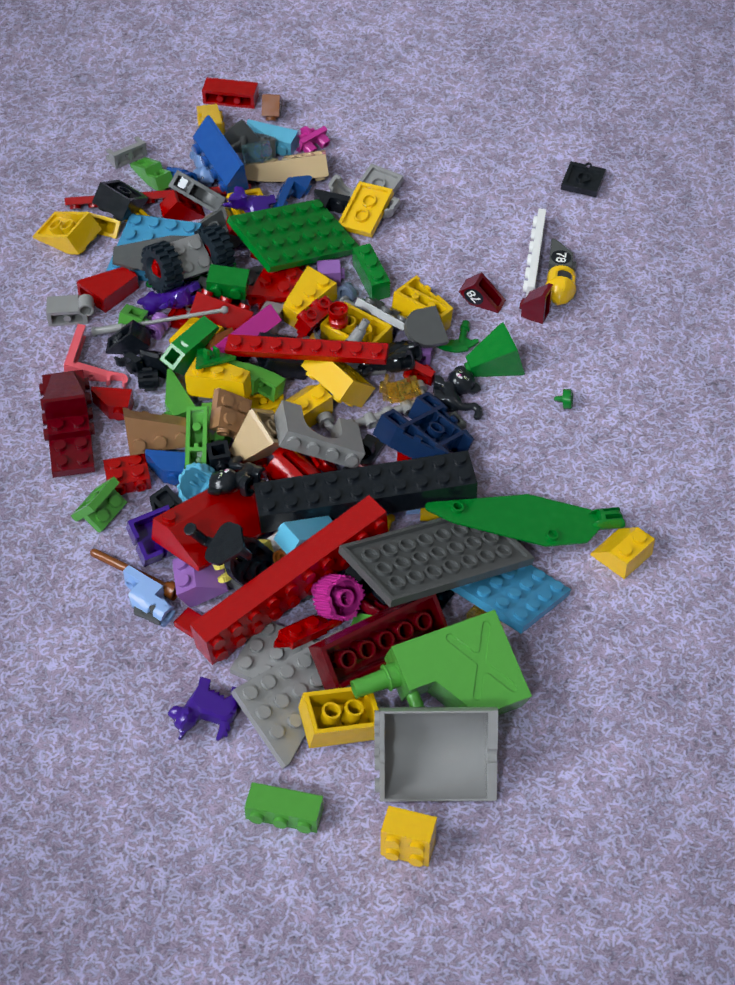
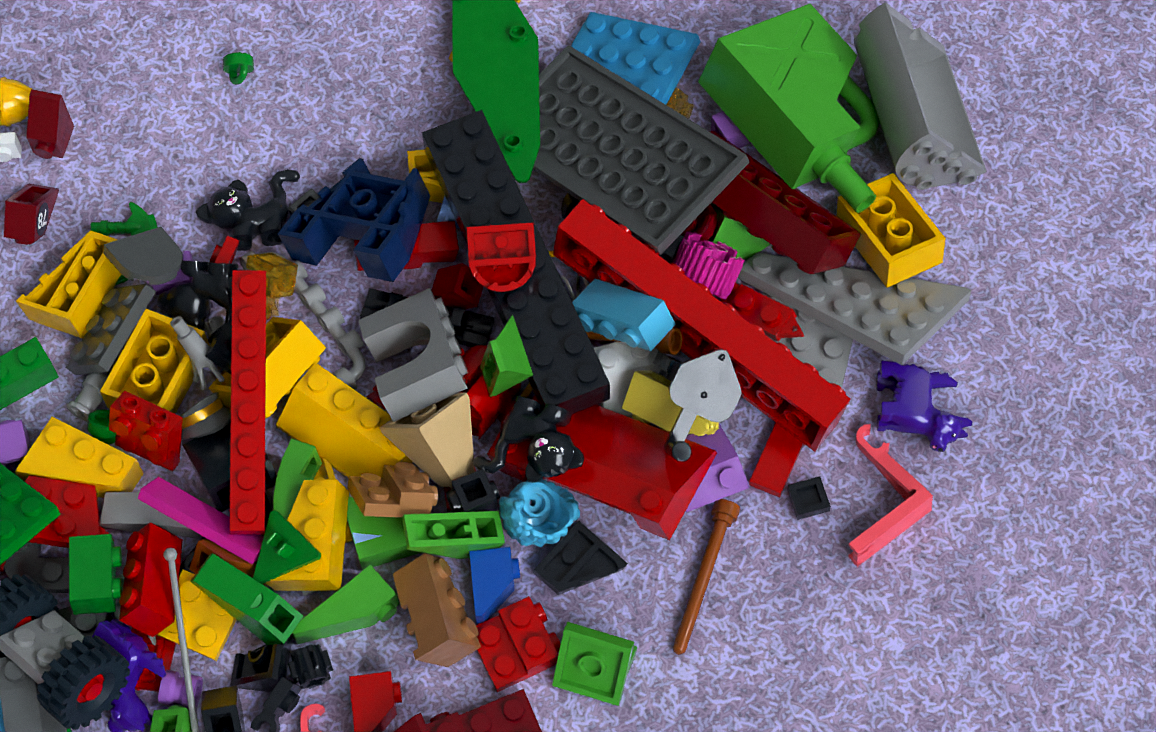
camera: 100 degrees left, 15 degrees up
(141, 533) = (642, 558): dark purple piece -> none
(147, 597) = (753, 537): light blue plate -> none
(151, 690) = (916, 504): none -> coral hinge
(164, 636) = (808, 498): none -> black plate
(284, 808) = (1037, 274): bright green brick -> none
(291, 462) = (505, 361): none -> bright green slope
(338, 315) = (146, 374): red wheel -> none
(348, 290) = (54, 406): sand blue tile -> none
(359, 468) = (502, 255): none -> red slope
(408, 836) = (1041, 117): yellow brick -> none
(495, 356) = (170, 163): green slope -> none

